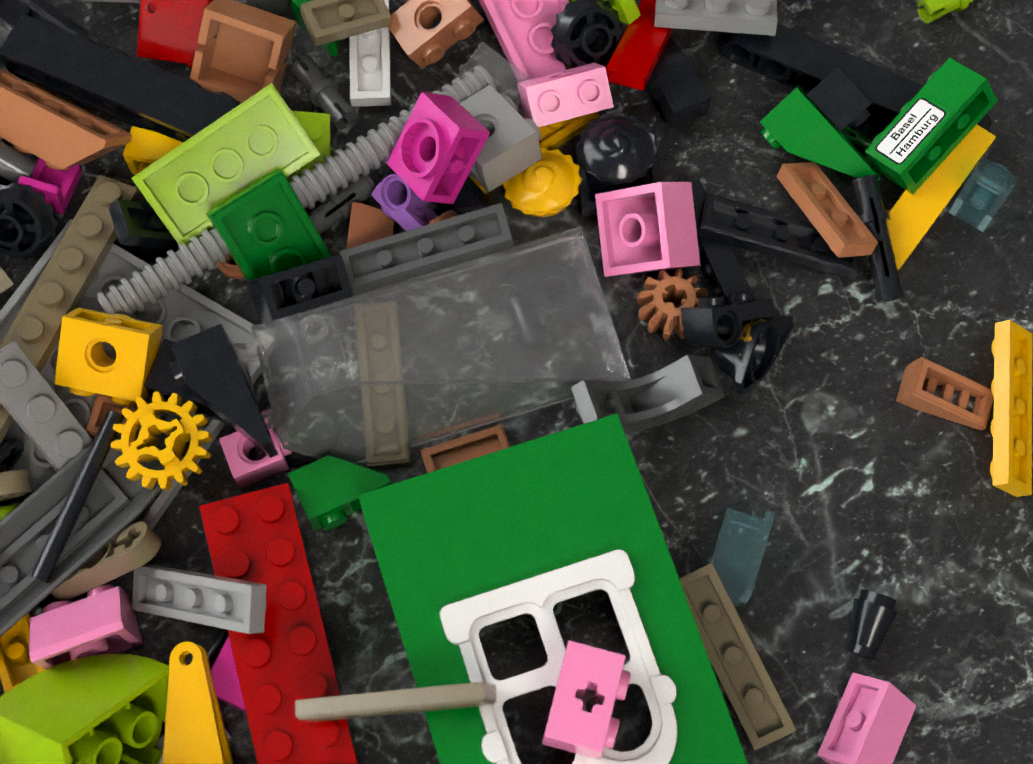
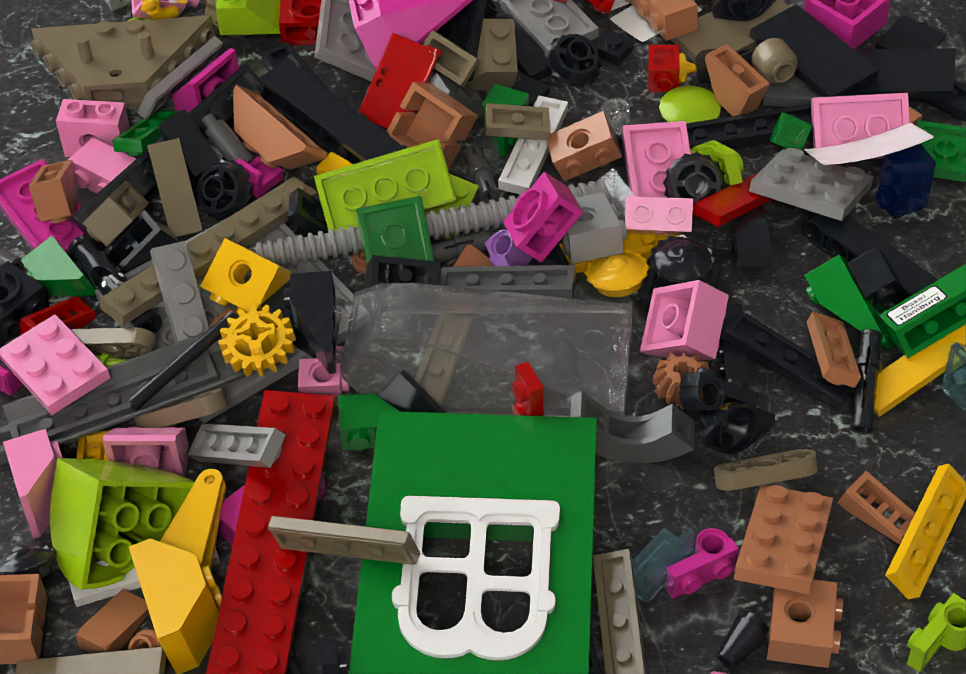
camera: 25 degrees right, 20 degrees down
(385, 452) = (409, 396): none -> black tile
(526, 414) = (527, 392): none -> red plate
(594, 671) = (480, 580): bright pink brick -> none
(782, 563) = (703, 567): none -> dark pink plate
(786, 408) = (765, 469): none -> dark tan beam
(873, 483) = (784, 539): none -> nougat plate
(945, 558) = (810, 640): none -> nougat brick

